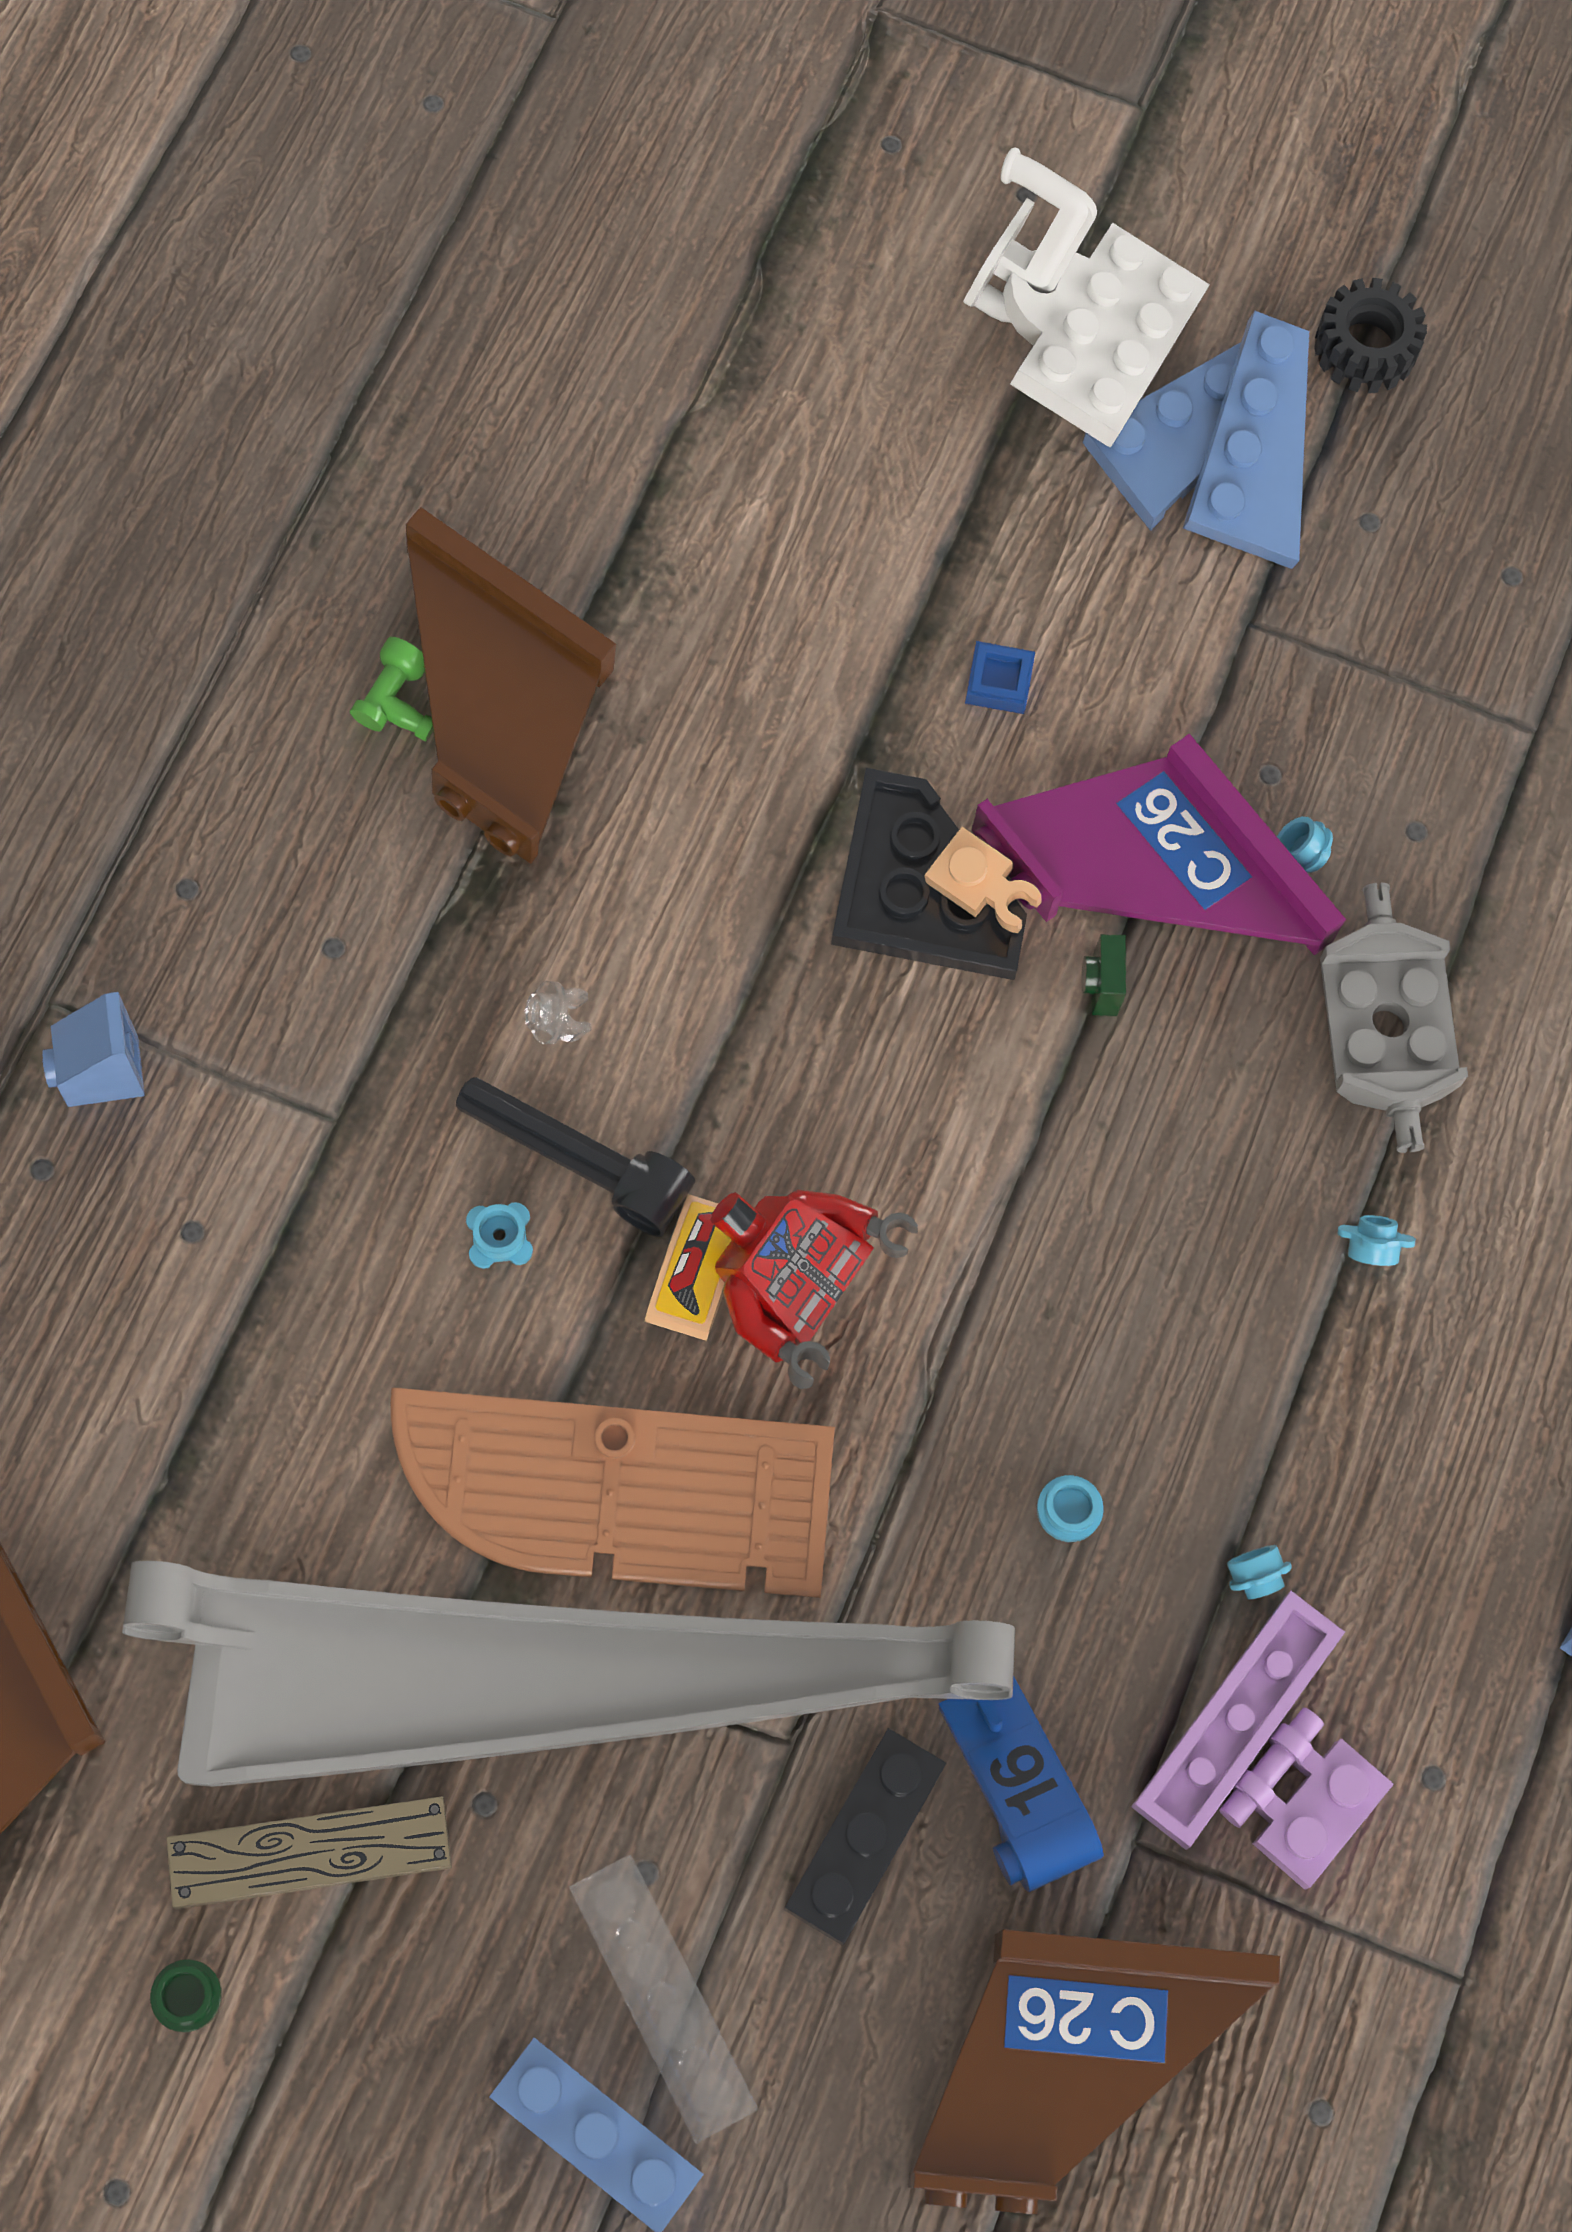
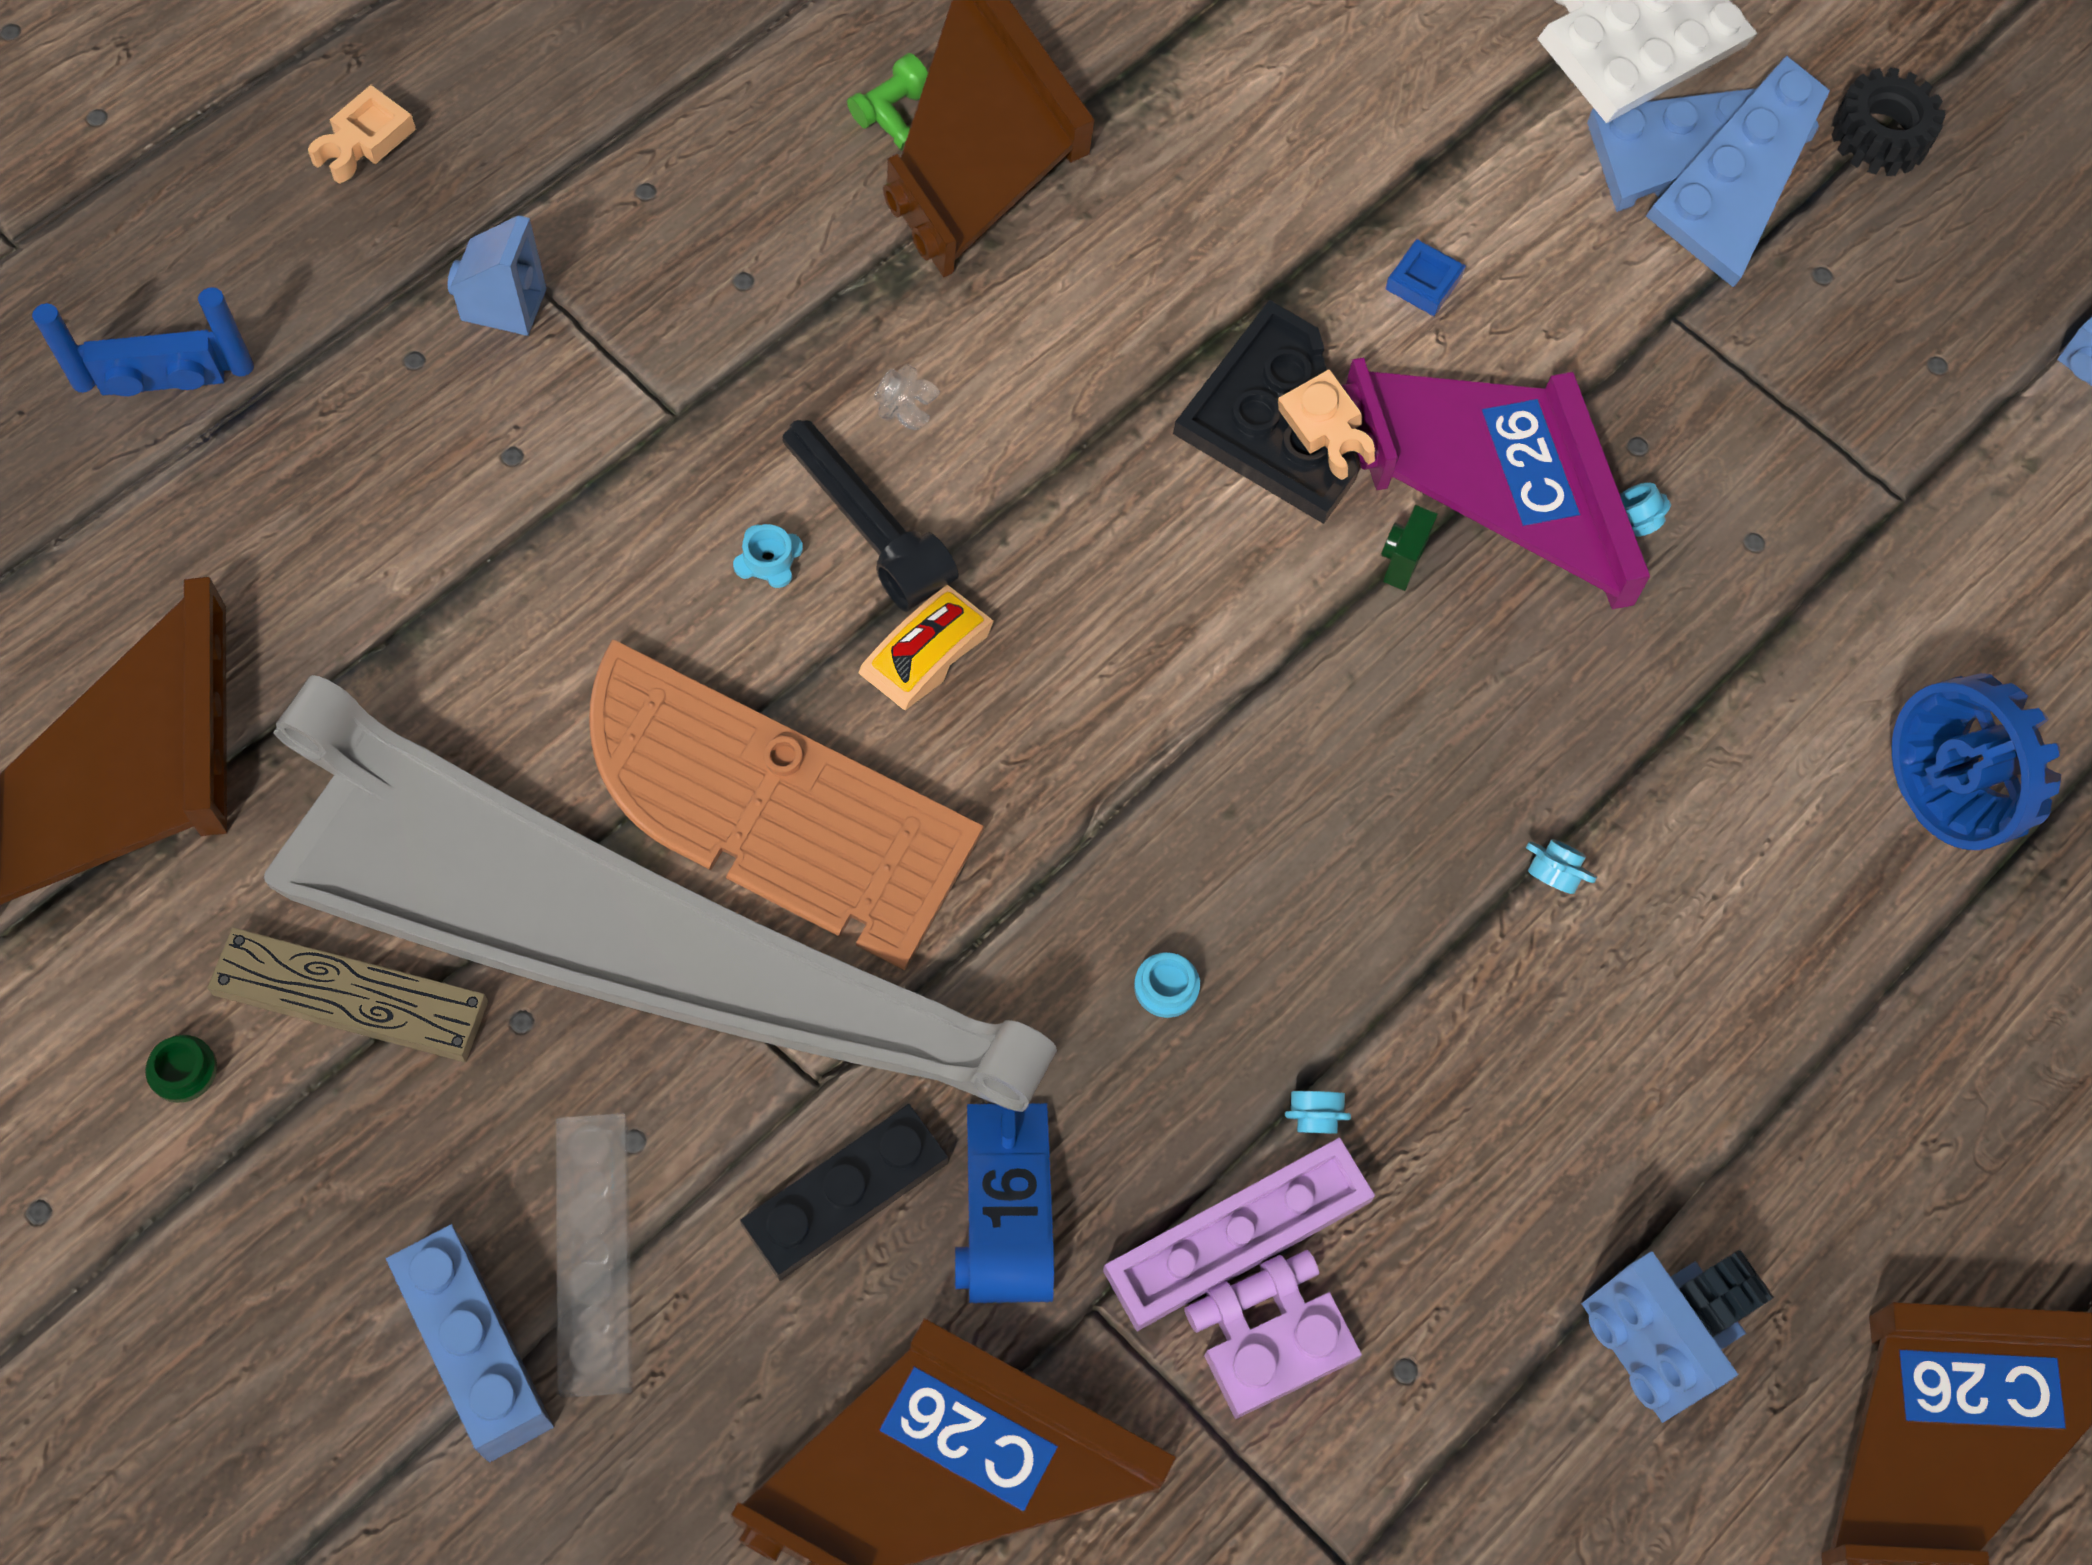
camera: 25 degrees right, 5 degrees down
(792, 1266) = (1010, 671): red torso -> none
(1401, 973) = (1688, 651): light grey plate -> none

